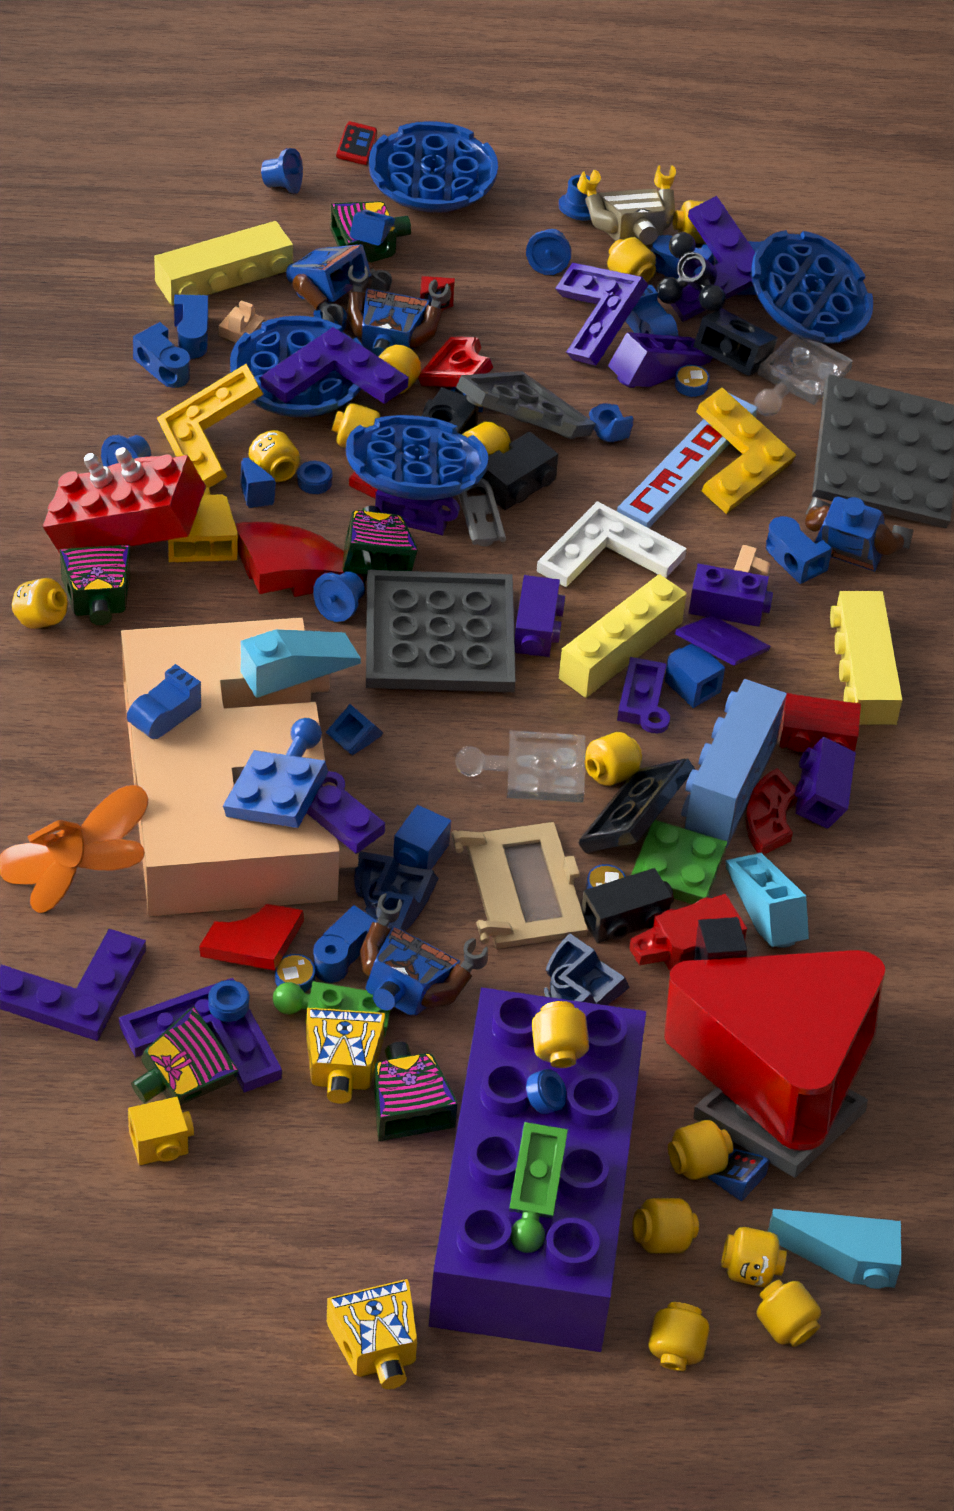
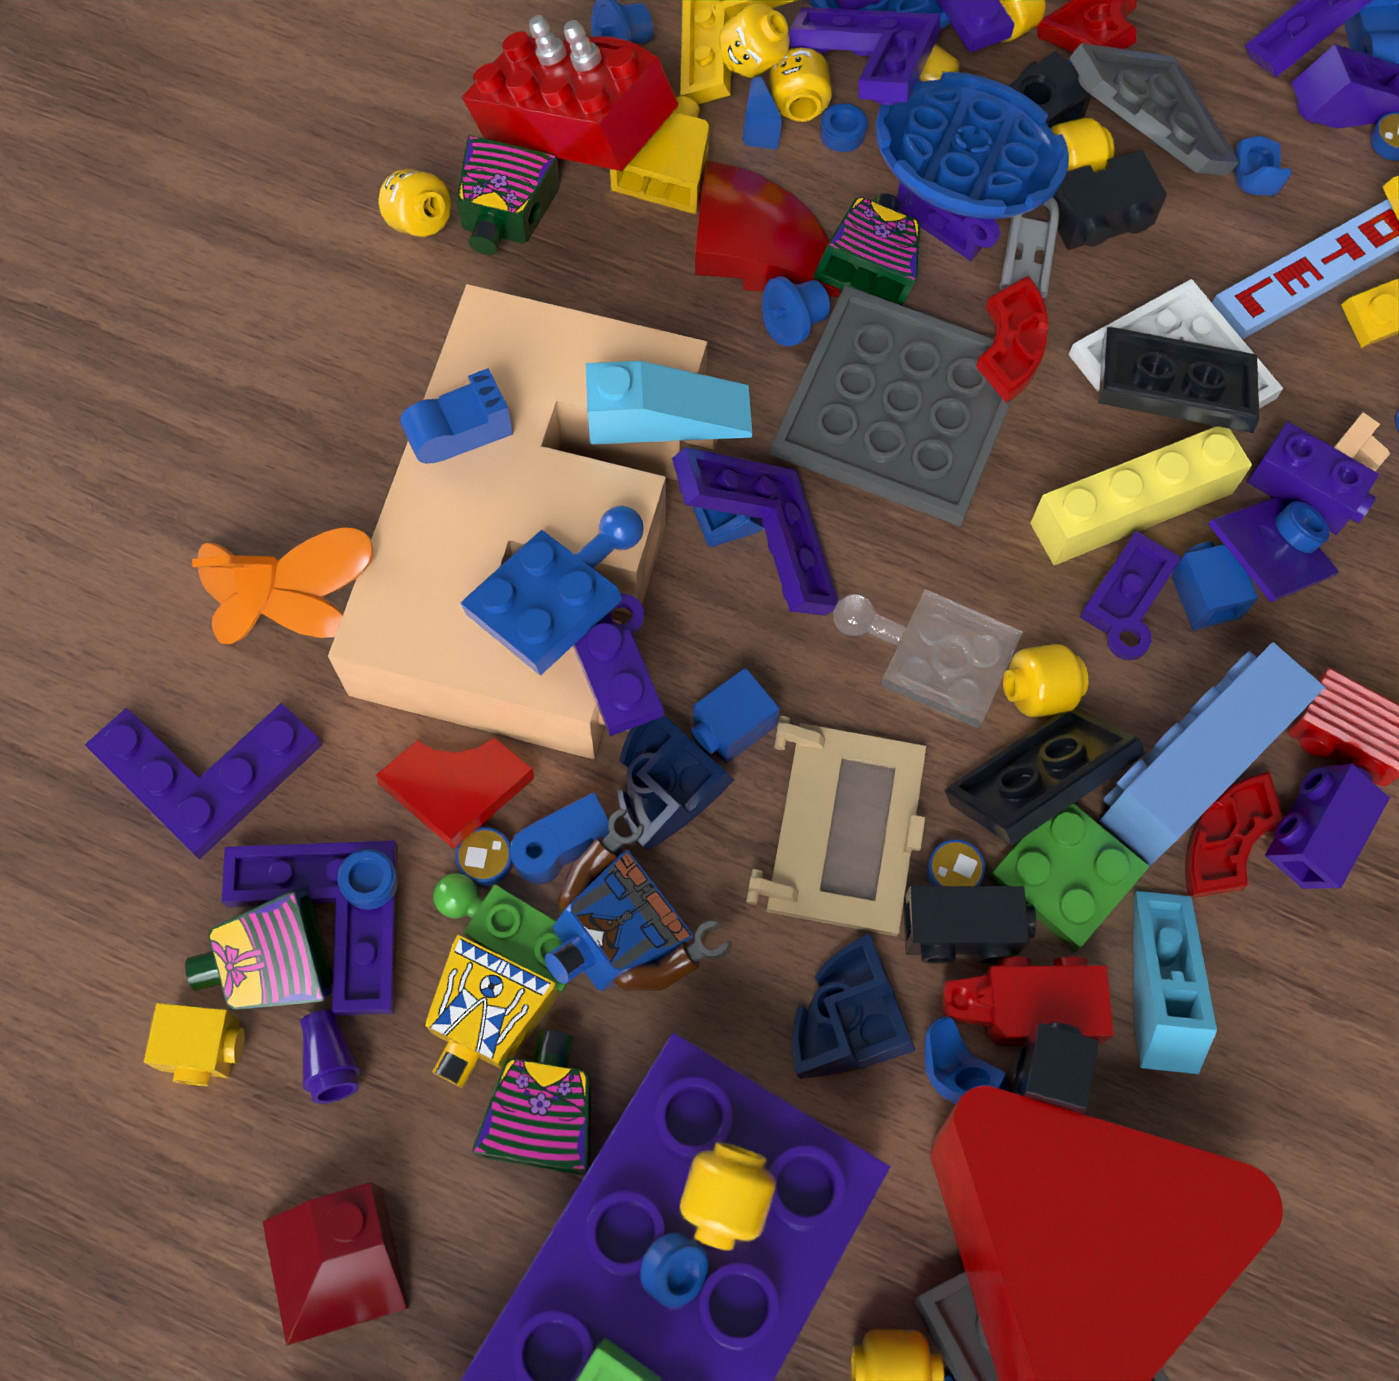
camera: 25 degrees right, 20 degrees up
(234, 435) = (754, 40): none -> yellow head
(255, 1115) = (328, 1062): none -> dark purple cone
(317, 1216) = (334, 1263): none -> dark red slope
(339, 406) = (896, 40): none -> dark purple plate
(385, 708) = (778, 499): none -> dark purple plate
(500, 565) = (1019, 338): none -> red tile
(536, 616) = (1036, 425): dark purple brick -> none
(617, 558) = (1179, 379): none -> black tile
(650, 984) = (953, 1067): none -> blue hair
(735, 624) = (1302, 527): none -> blue tile

